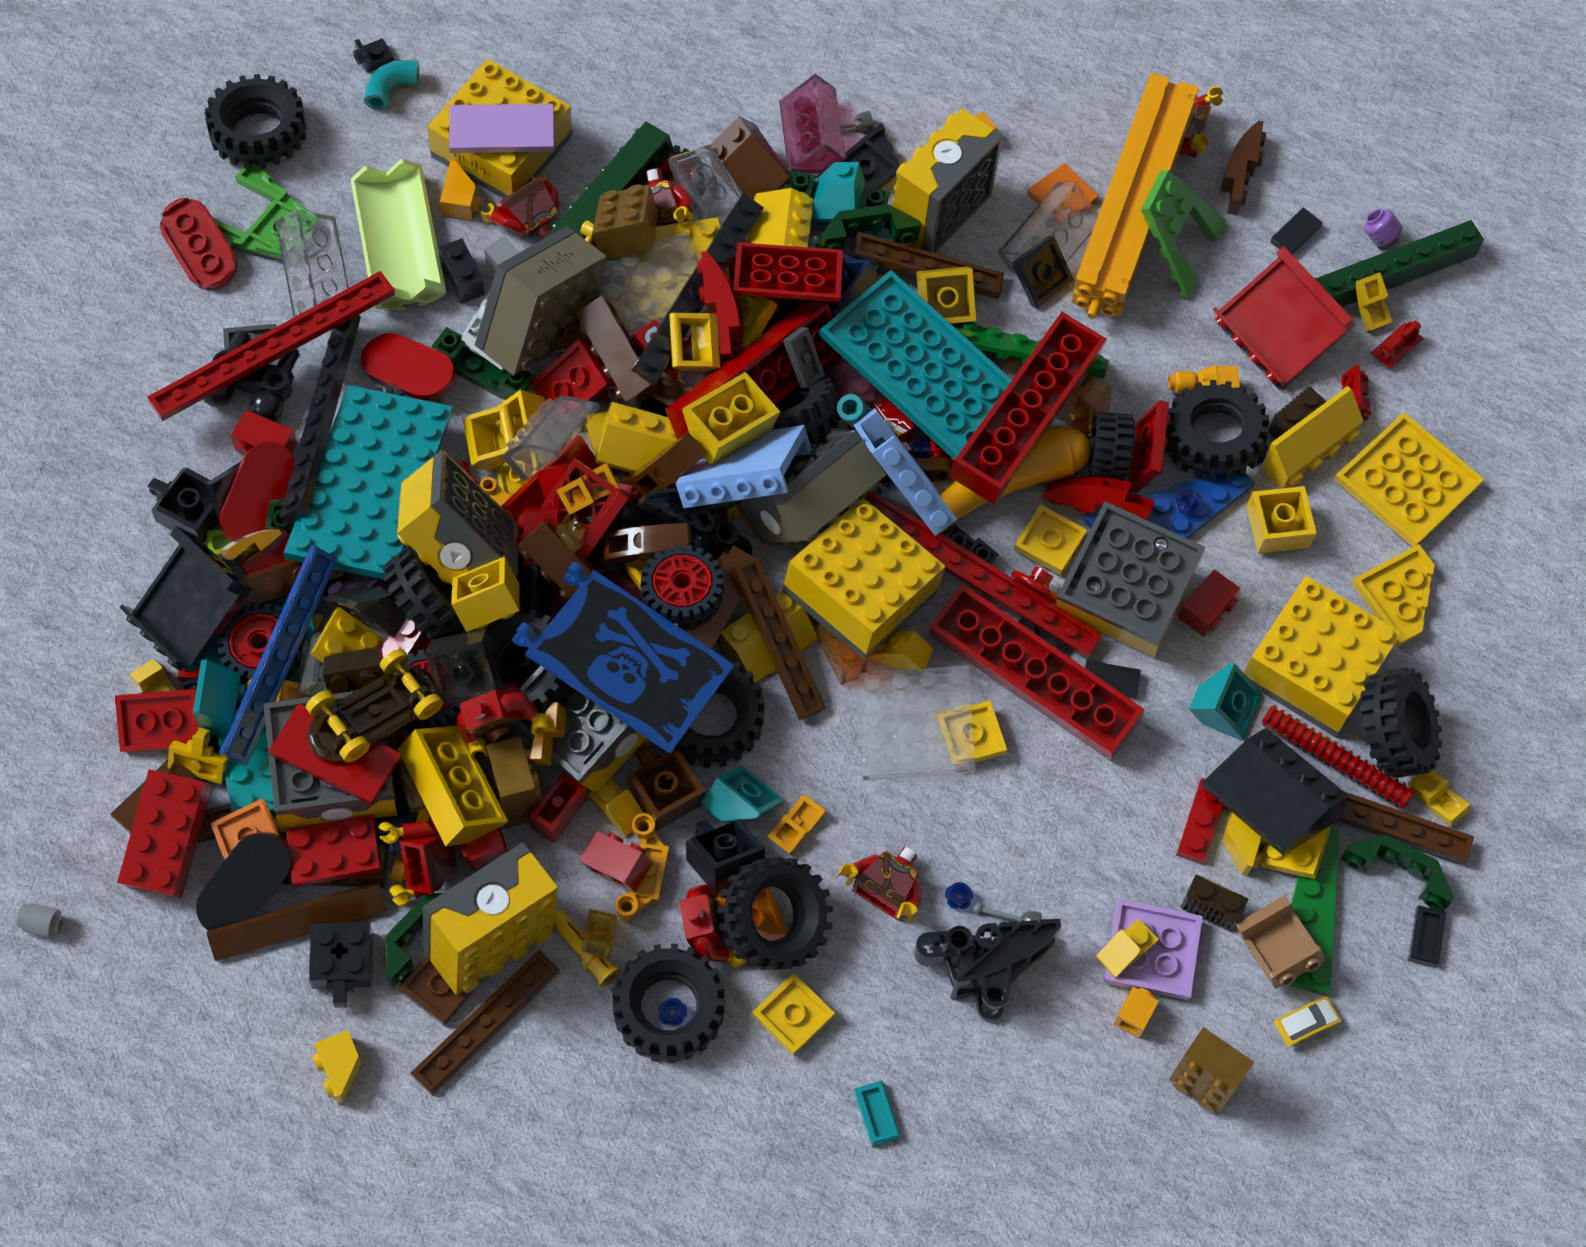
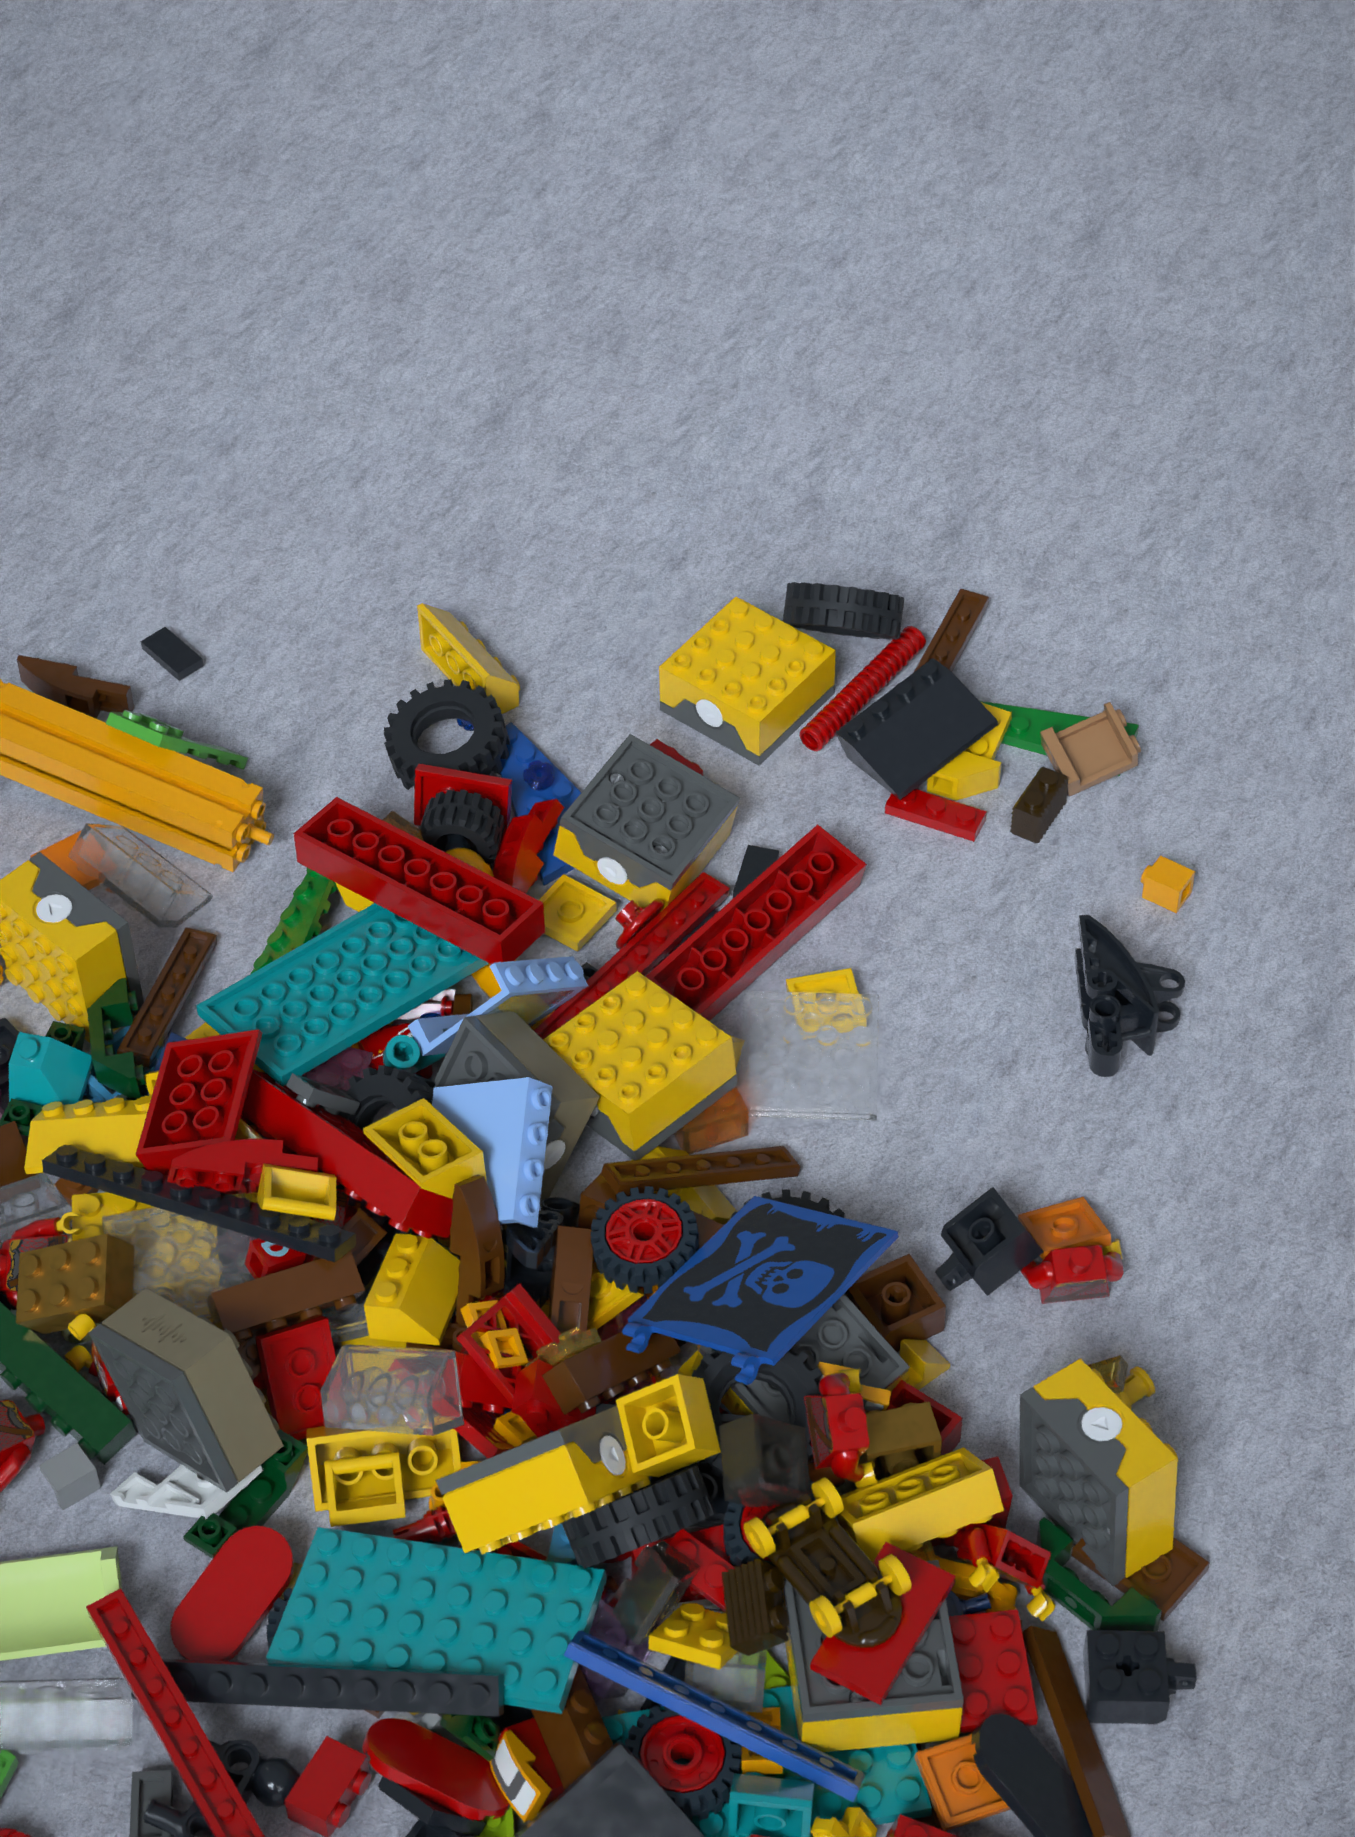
camera: 80 degrees left, 15 degrees down
(341, 1064) = (1271, 1680): yellow slope -> none
(461, 270) = (82, 1525): black brick -> none
(485, 1022) = (1232, 1546): reddish brown tile -> none
(616, 861) = (995, 1360): brick -> none
(650, 887) = (1001, 1337): light orange plate -> none
(668, 965) = (1183, 1279): black tyre -> none
(672, 1004) = (1184, 1313): clear blue plate -> none
(740, 796) = (918, 1227): teal slope -> none
(793, 1014) = (1182, 1198): yellow plate -> none
(797, 824) = (941, 1189): light orange slope -> none
(808, 913) = (1071, 1188): black tyre -> none
(876, 1113) = (1295, 1129): teal tile -> none
(887, 882) = (1021, 1091): torso -> none
(949, 292) = (214, 964): yellow brick -> none
(962, 889) = (1029, 1032): clear blue plate -> none
(978, 908) = (1061, 970): light grey hinge -> none
(1042, 271) = (196, 882): black tile -> none
(1126, 948) = (1099, 878): yellow slope -> none
(1171, 962) = (1092, 865): lavender plate -> none
(1188, 379) = (372, 750): light orange piece -> none
(1210, 1071) = (1245, 811): pearl gold brick -> none
(1227, 702) = (795, 774): teal slope -> none
(1281, 519) = (569, 698): yellow brick -> none
(1284, 319) = (303, 663): red panel -> none
(1295, 411) = (426, 665): dark brown brick -> none
(1307, 1021) = (1172, 746): slope -> none
(1358, 383) = (396, 625): red hinge -> none
(1371, 302) = (292, 592): yellow slope -> none
(1383, 227) = (187, 571): medium lavender head -> none
(1398, 344) = (341, 581): red hinge -> none
(1399, 591) = (660, 618): yellow plate -> none
(1406, 261) = (246, 579): dark green brick -> none
(1409, 479) = (521, 592): yellow plate -> none
(1427, 936) = (1069, 644): black tile -> none
(1435, 891) = (1010, 626): dark green slope -> none
(1437, 797) = (920, 610): yellow slope -> none

